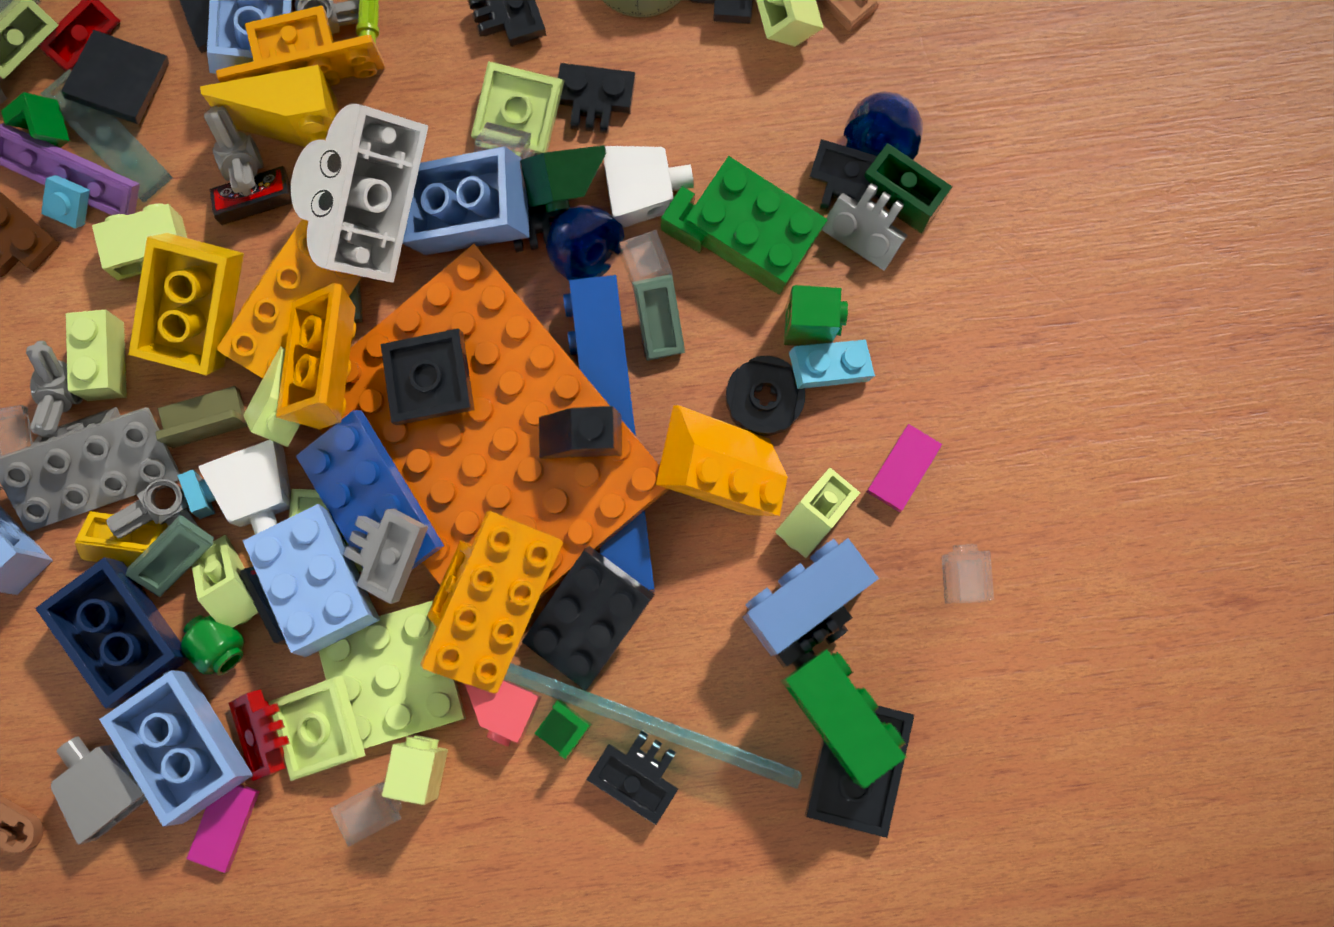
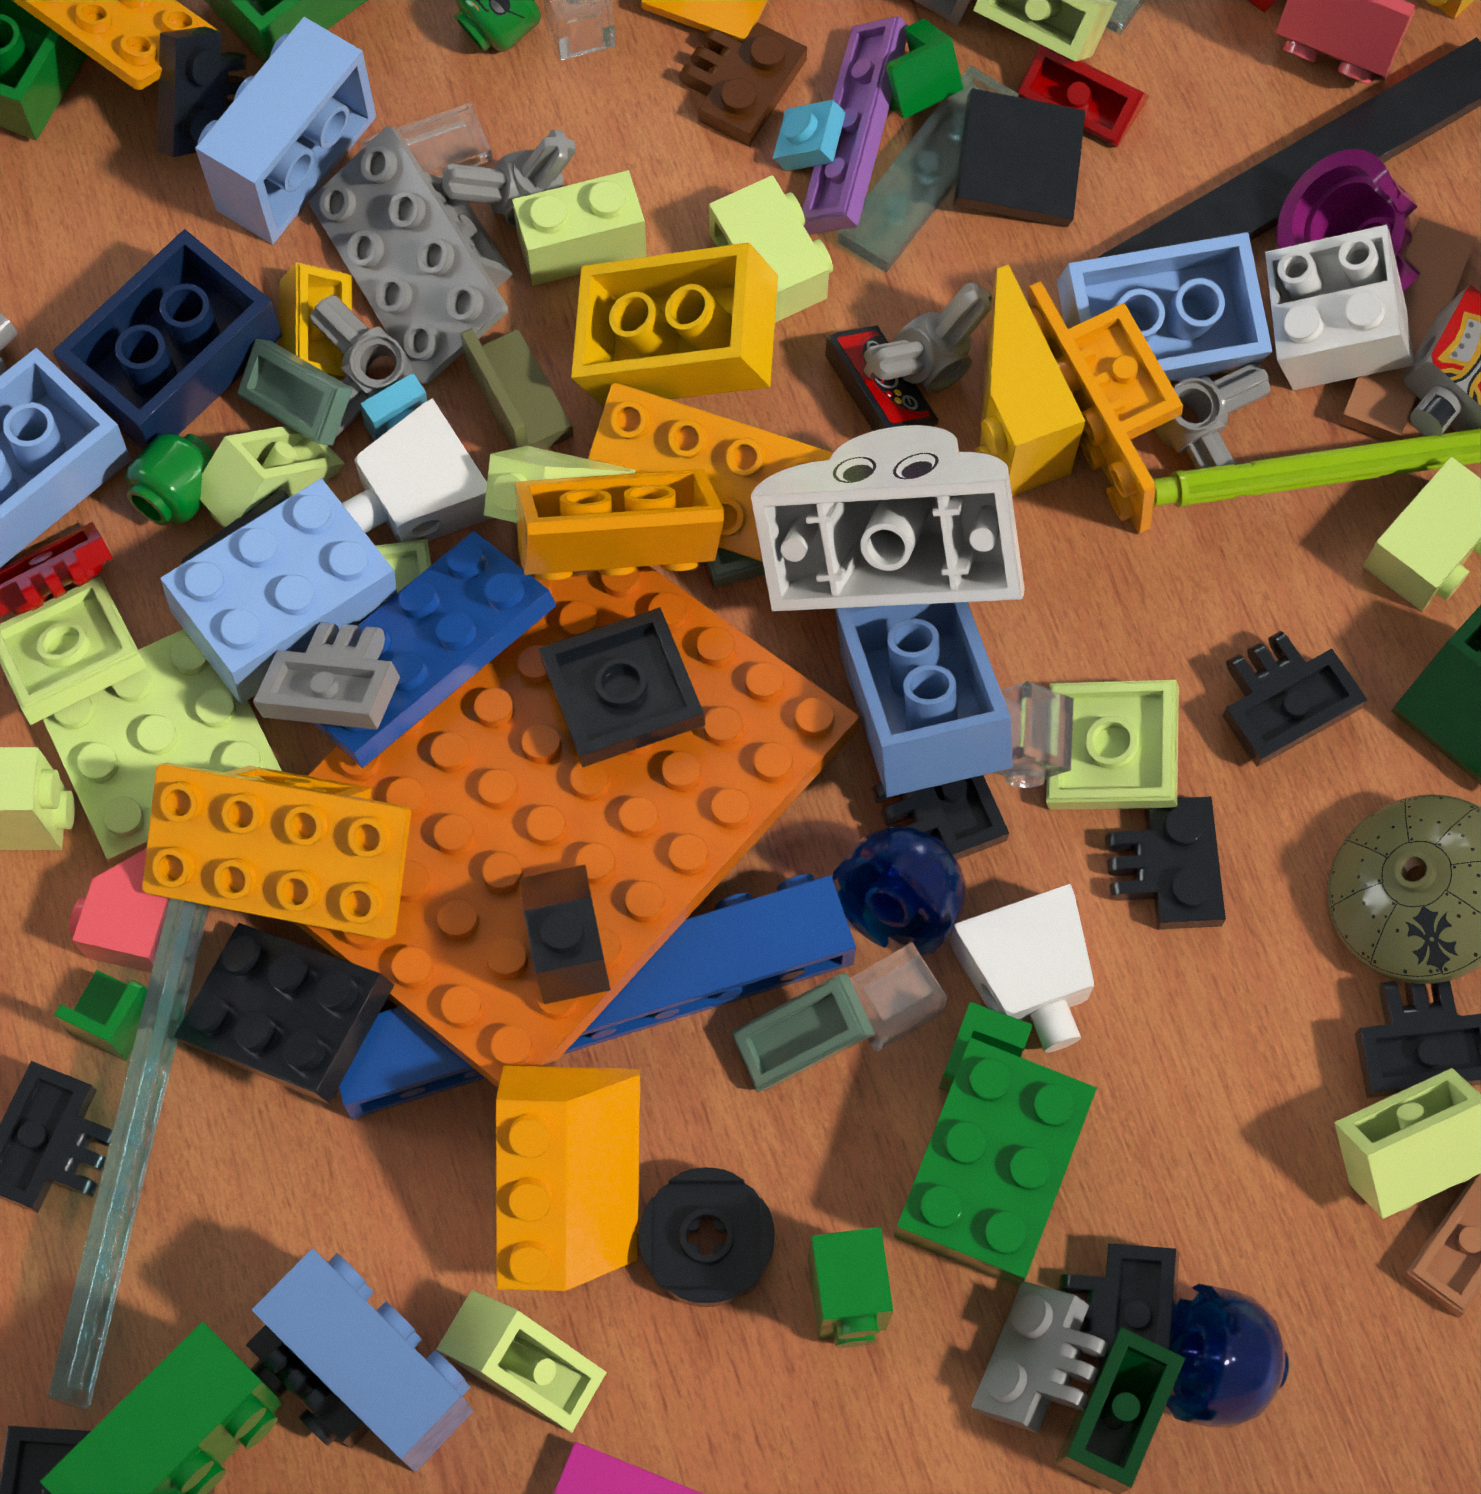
camera: 80 degrees right, 10 degrees down
(560, 176) = (999, 826): dark green slope -> none
(831, 364) = (781, 1340): medium azure plate -> none

